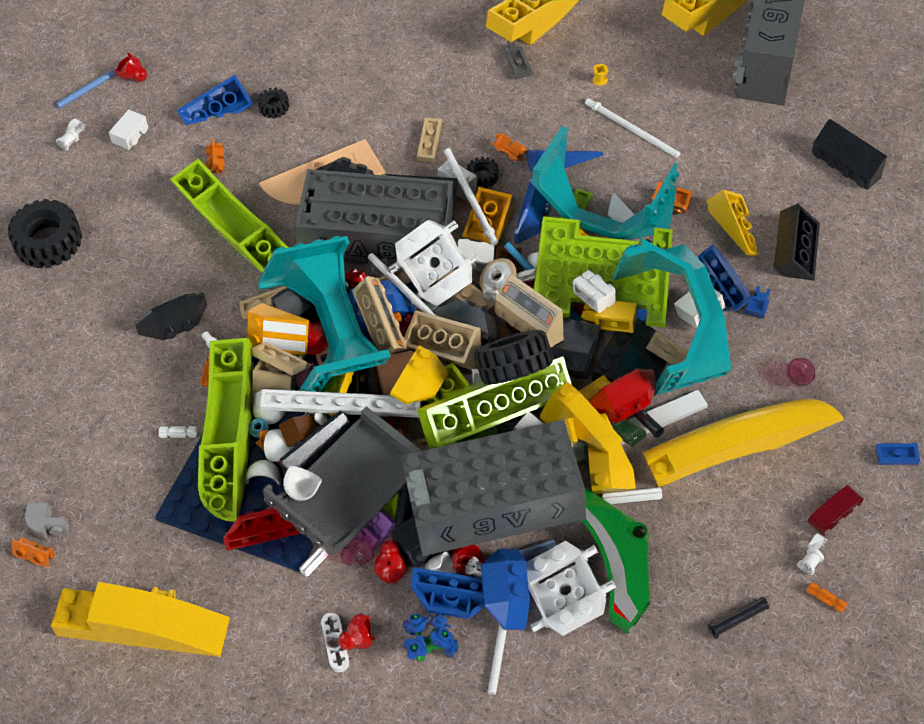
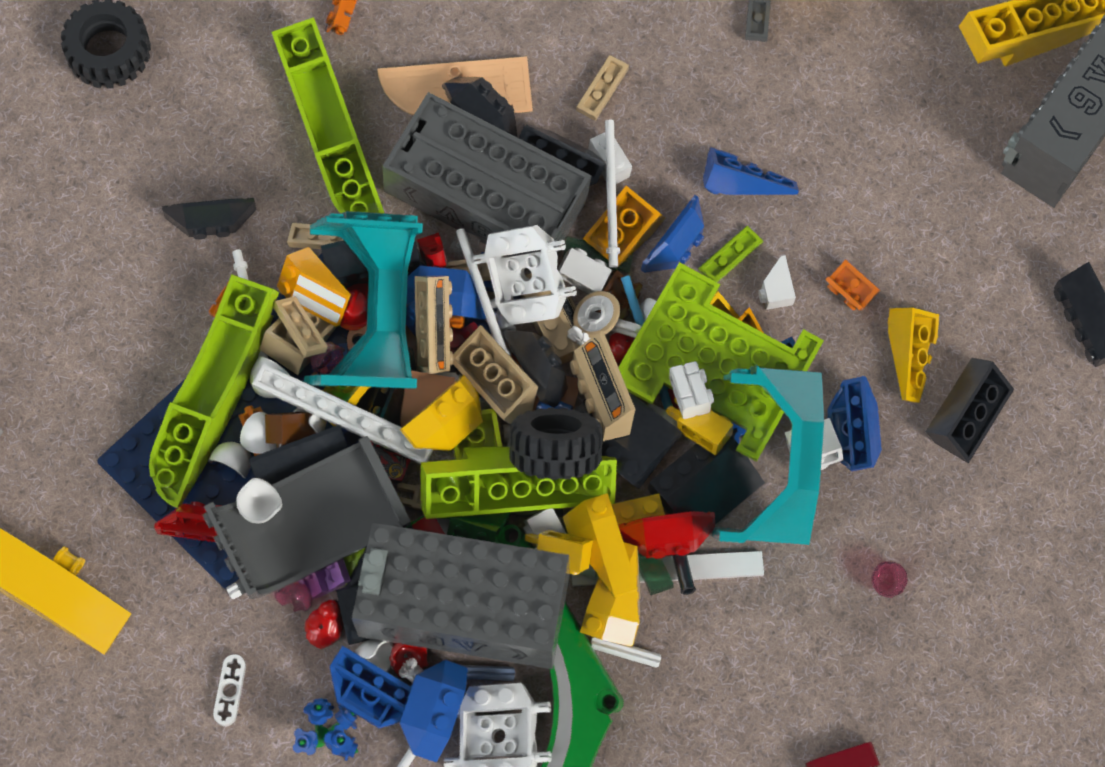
camera: 15 degrees right, 15 degrees up
(178, 432) = (161, 364): white axle -> none
(254, 432) = (255, 397): medium azure plate -> none
(357, 634) = (255, 693): red piece -> none
(484, 164) = (651, 149): black tyre -> none
(503, 145) = (696, 146): orange hinge -> none
(553, 184) = (709, 232): teal panel -> none
(596, 106) = (824, 119): white bar -> none
(600, 72) = (848, 76): yellow bush -> none
(666, 349) = (748, 489): tan hinge -> none
(737, 437) = (777, 632): yellow slope -> none
(758, 304) = (885, 469): blue plate -> none
(897, 454) = (948, 725): blue plate -> none

